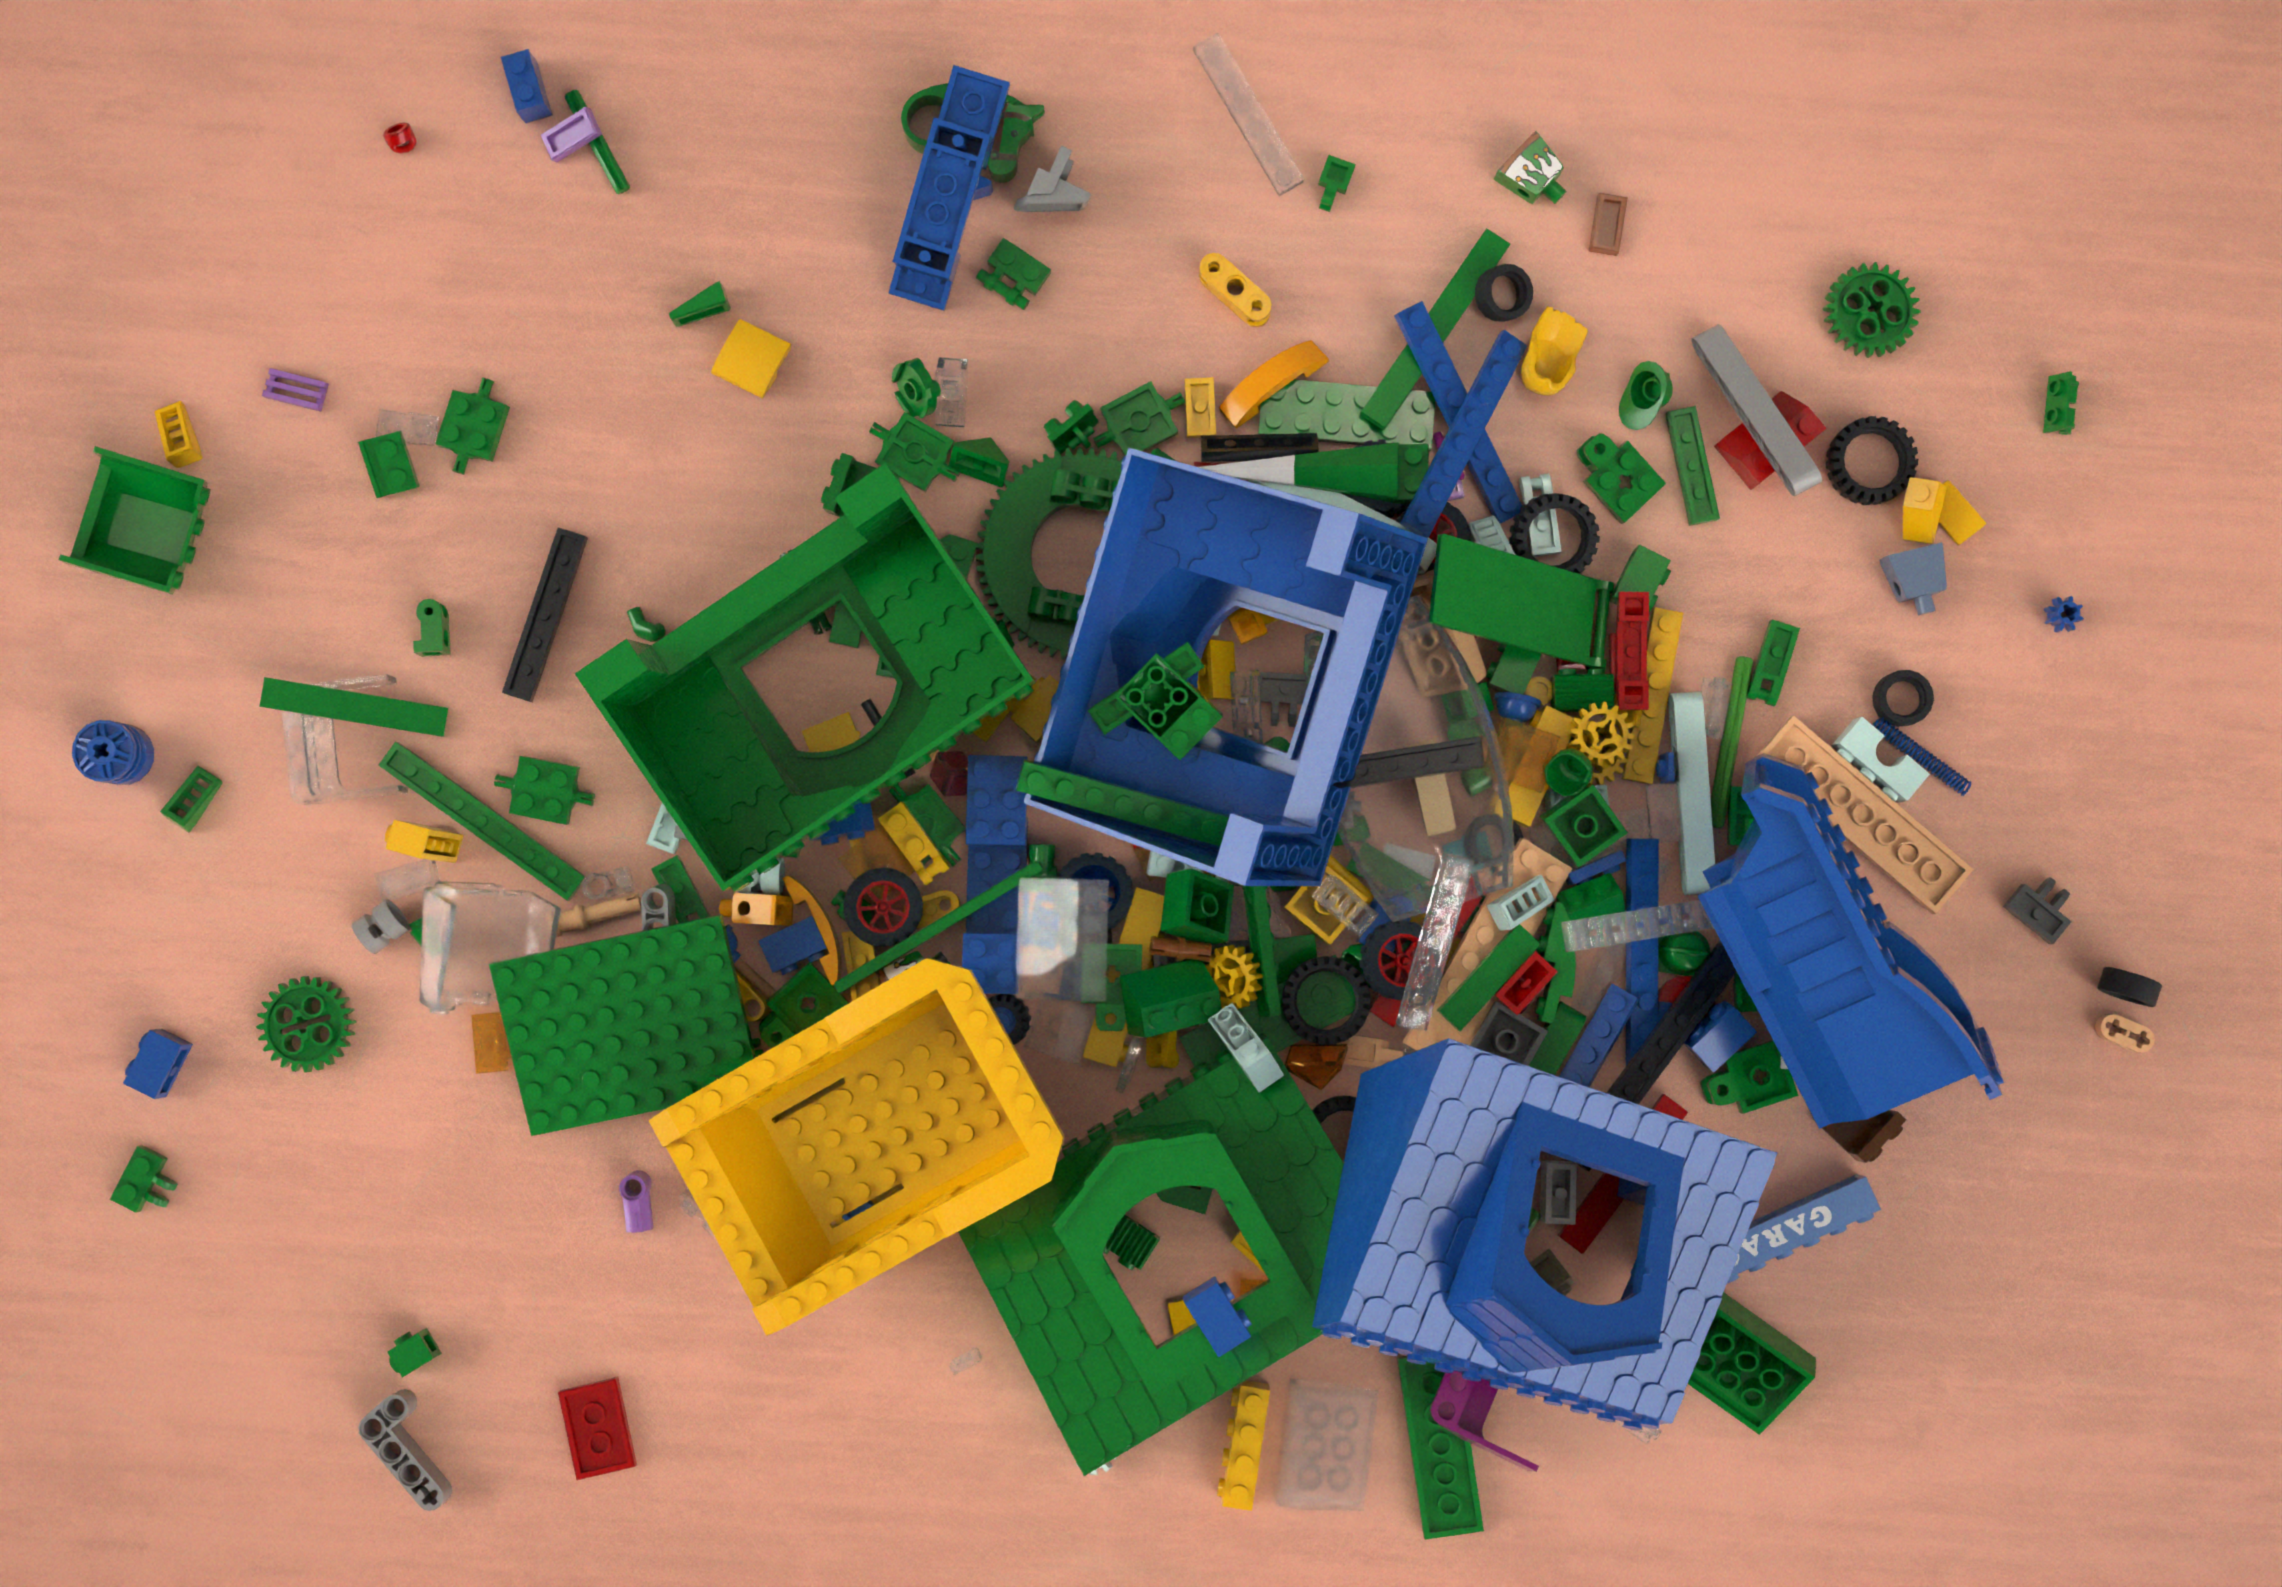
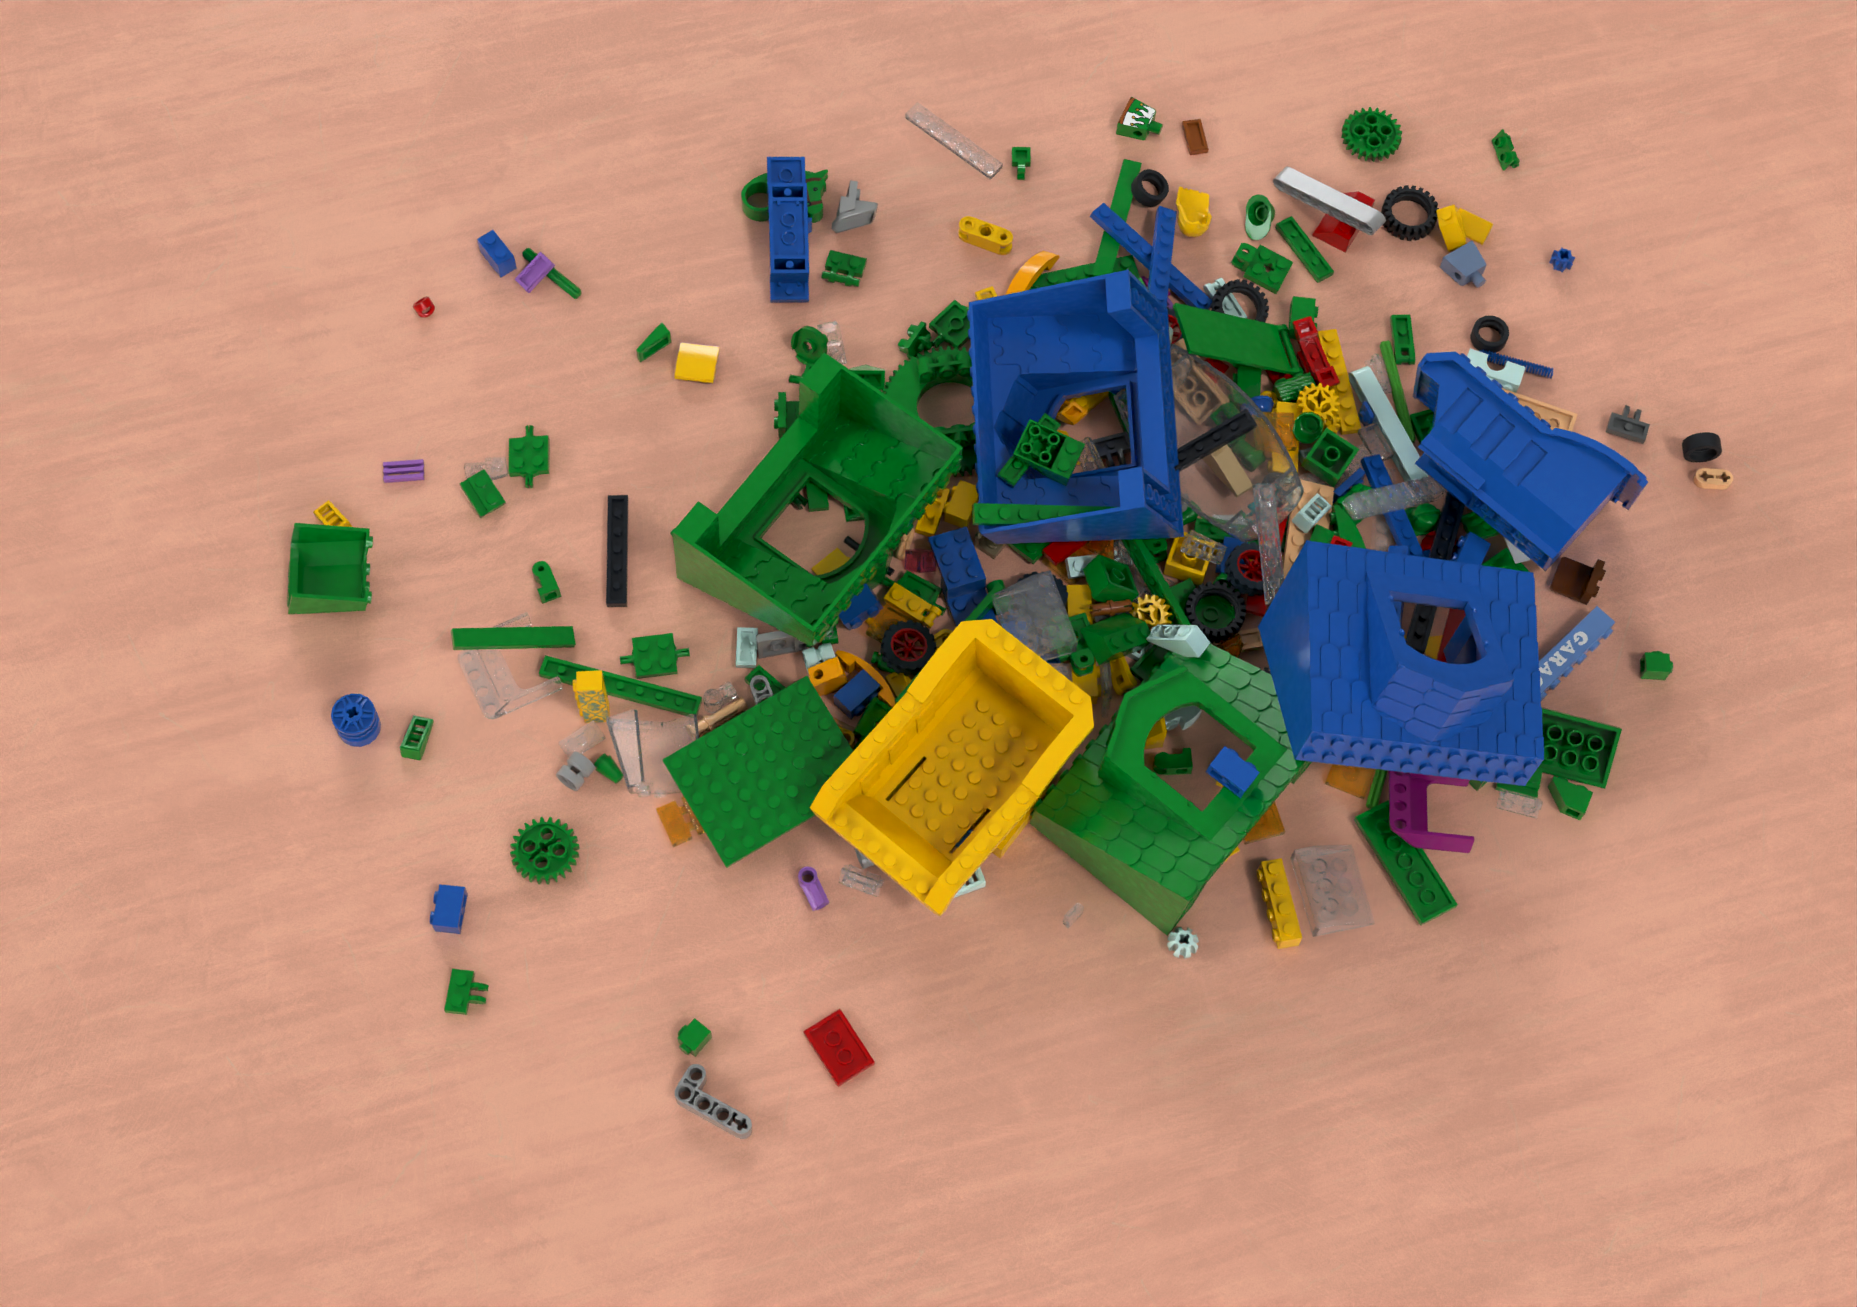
camera: 25 degrees left, 20 degrees down
(1704, 1438) = (1570, 798): none -> green slope
(1910, 1286) = (1655, 665): none -> green brick

